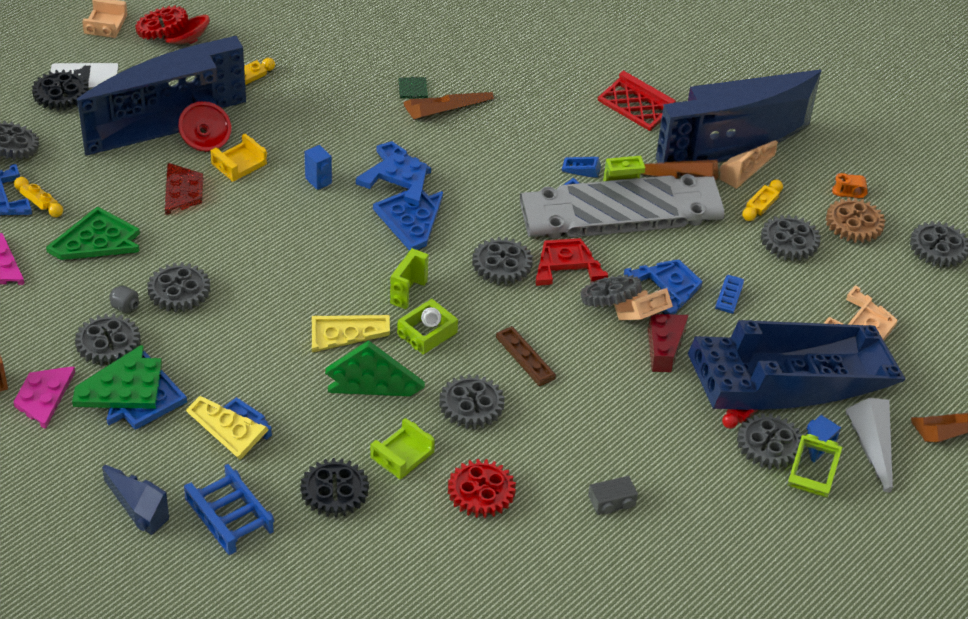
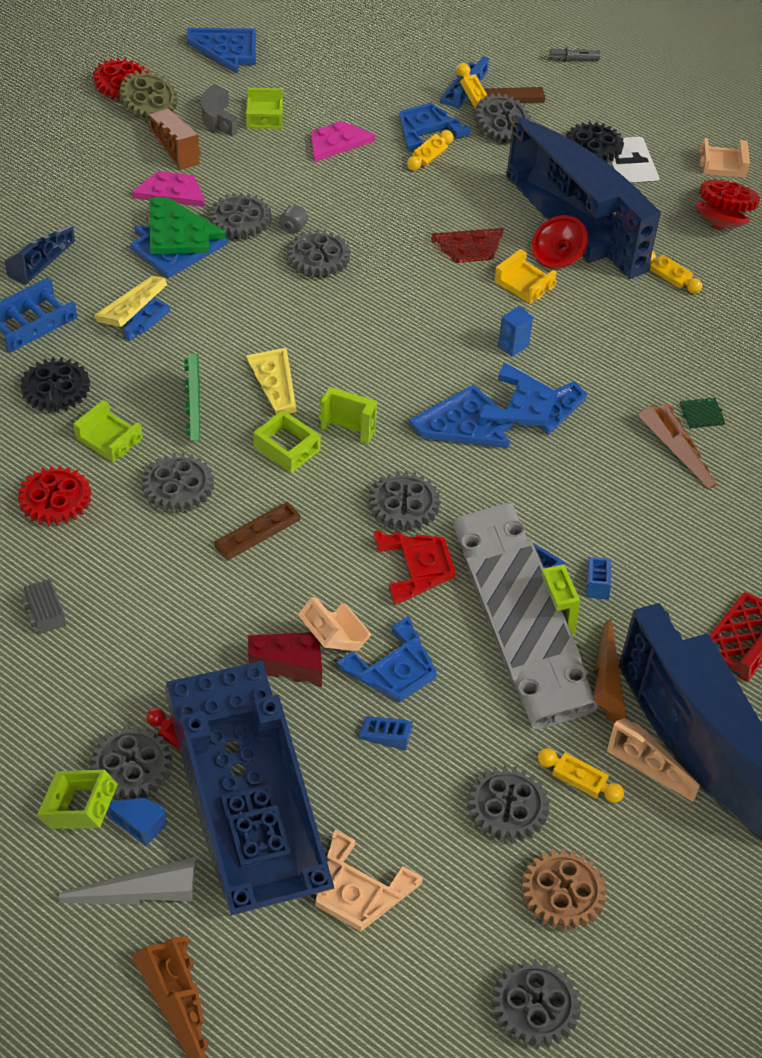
camera: 85 degrees right, 5 degrees up
(95, 236) = (381, 193): green wing -> none
(431, 317) = (281, 429): white plate -> none
(611, 290) = (358, 596): dark grey gear -> none
(851, 186) = (639, 888): orange piece -> none

